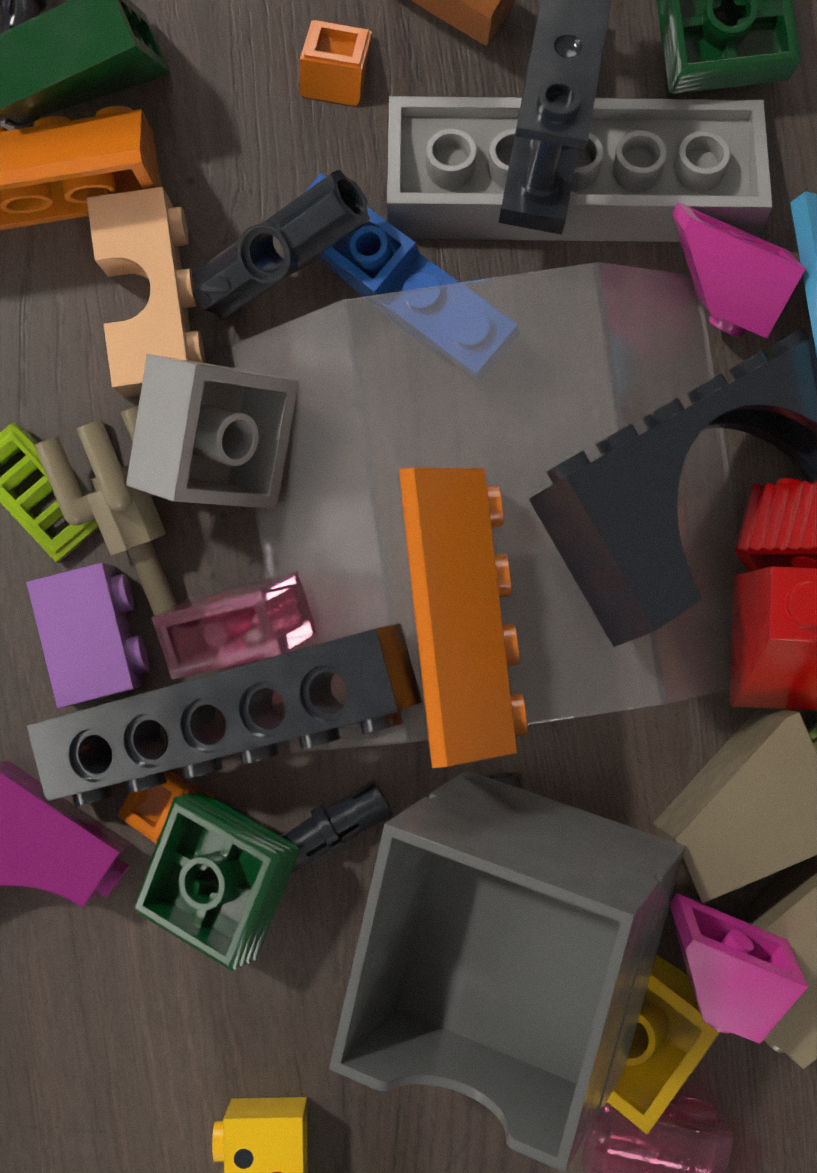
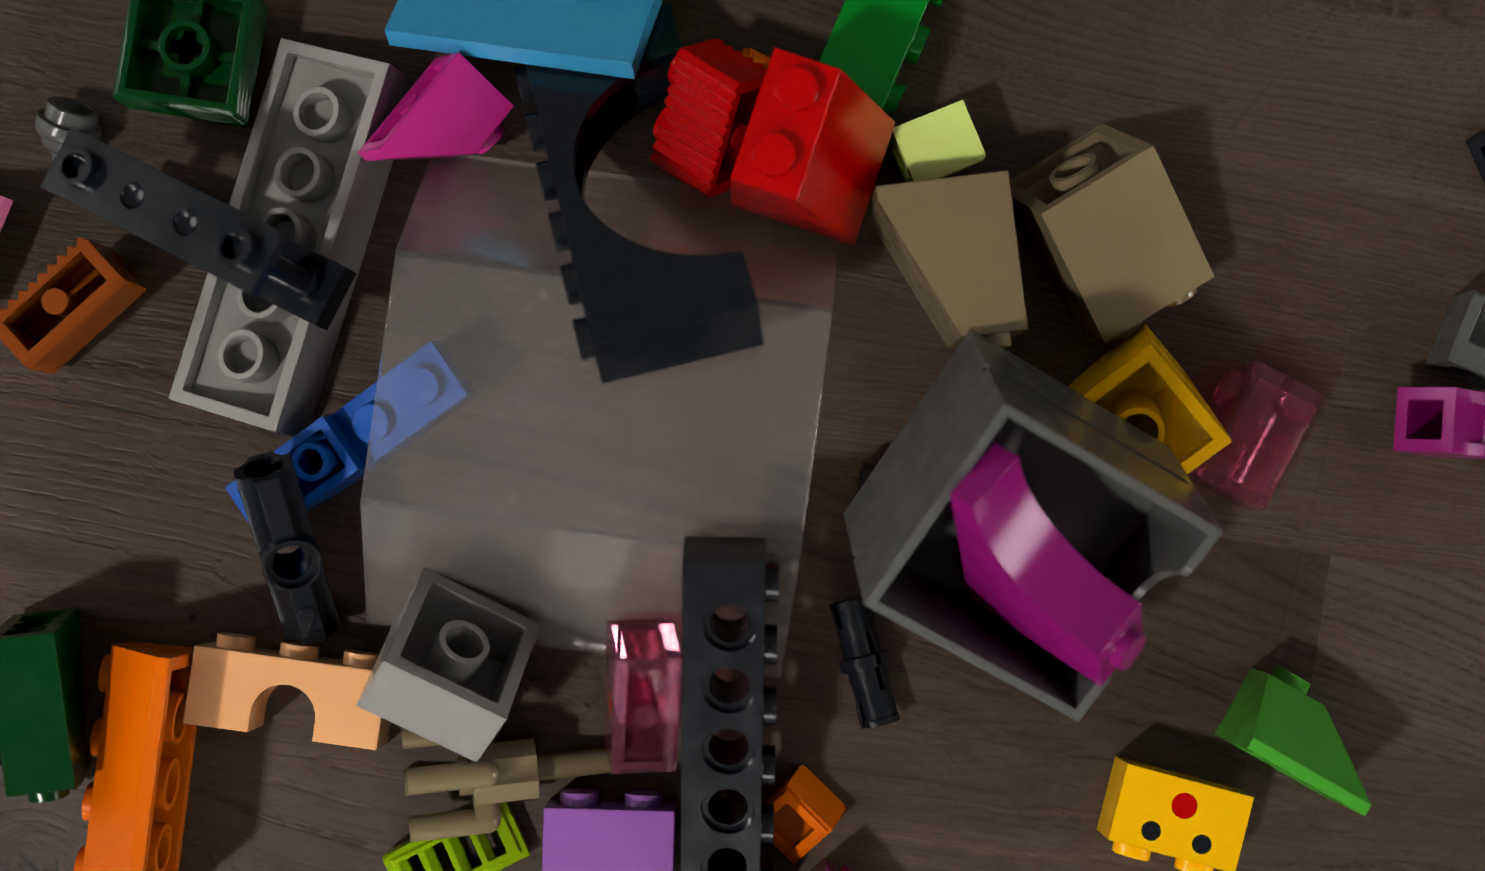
camera: 75 degrees left, 0 degrees up
(183, 892) = (881, 818): dark green brick -> none
(334, 62) = (117, 442): orange slope -> none
(459, 614) = (691, 479): orange slope -> none
(459, 987) = (1035, 578): none -> magenta arch
(737, 971) = (1098, 315): dark pink slope -> none

